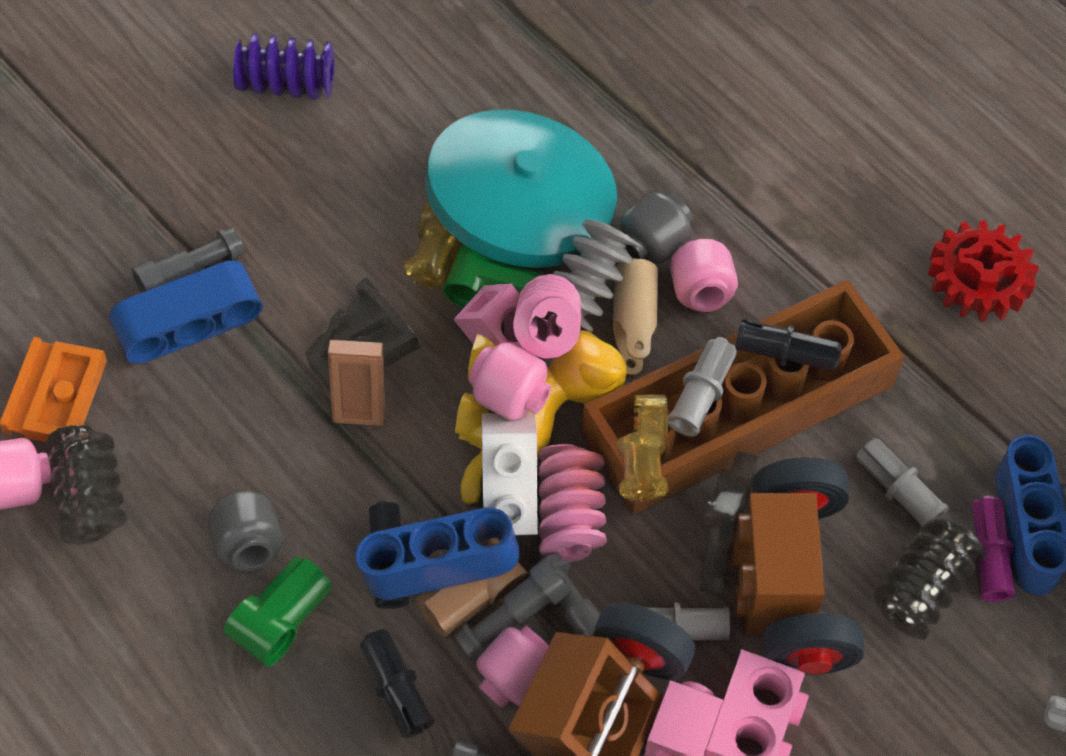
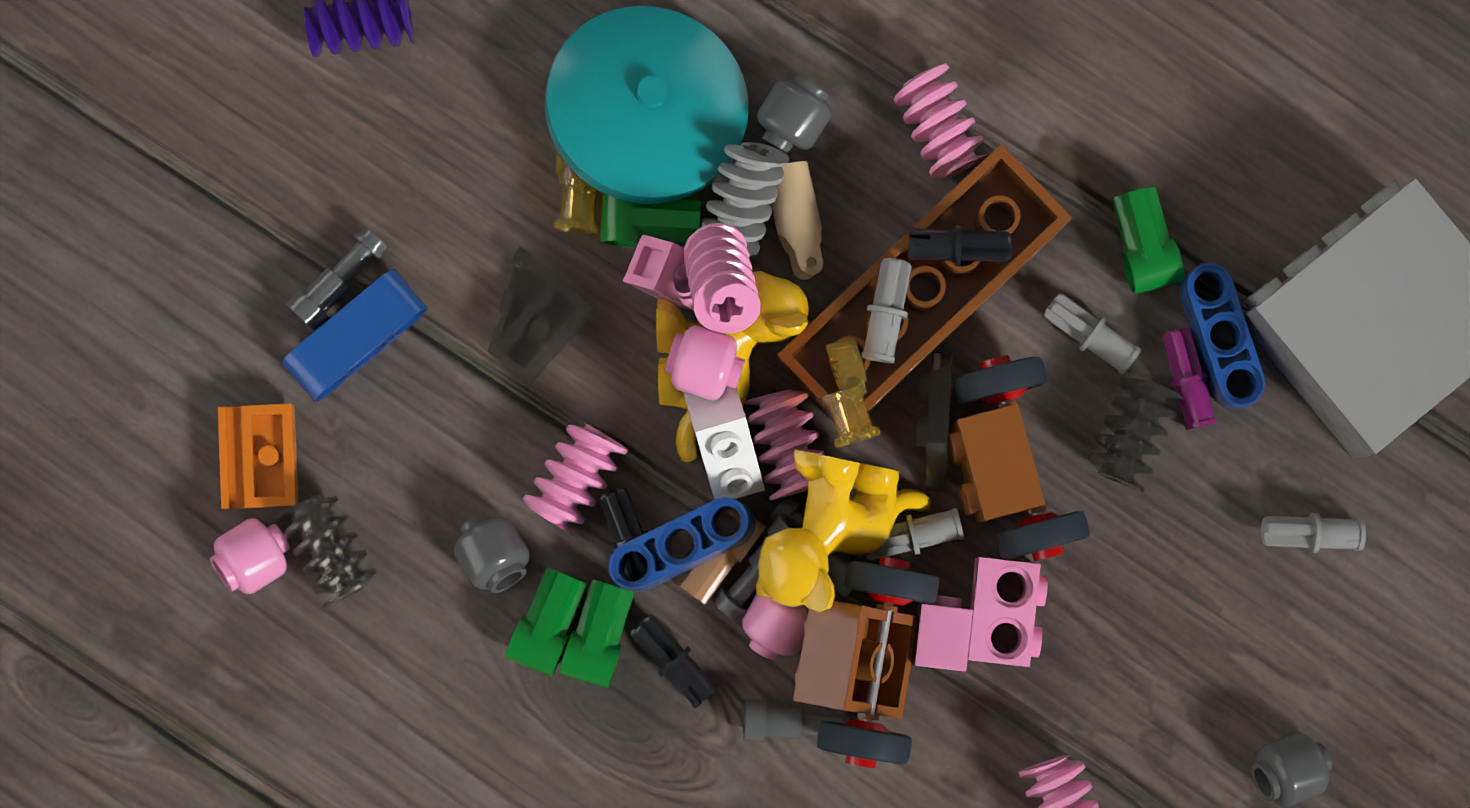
camera: 15 degrees left, 25 degrees up
(318, 648) = (595, 644): none -> green piece
(349, 477) = (574, 476): none -> bright pink piece
(356, 382) = (551, 382): nougat tile -> none
(550, 587) = (795, 560): none -> yellow animal
(703, 275) = (854, 156): bright pink head -> none
(789, 259) = (939, 123): none -> bright pink piece
(972, 424) = (1149, 255): none -> green piece
(978, 268) = (1134, 95): red gear -> none

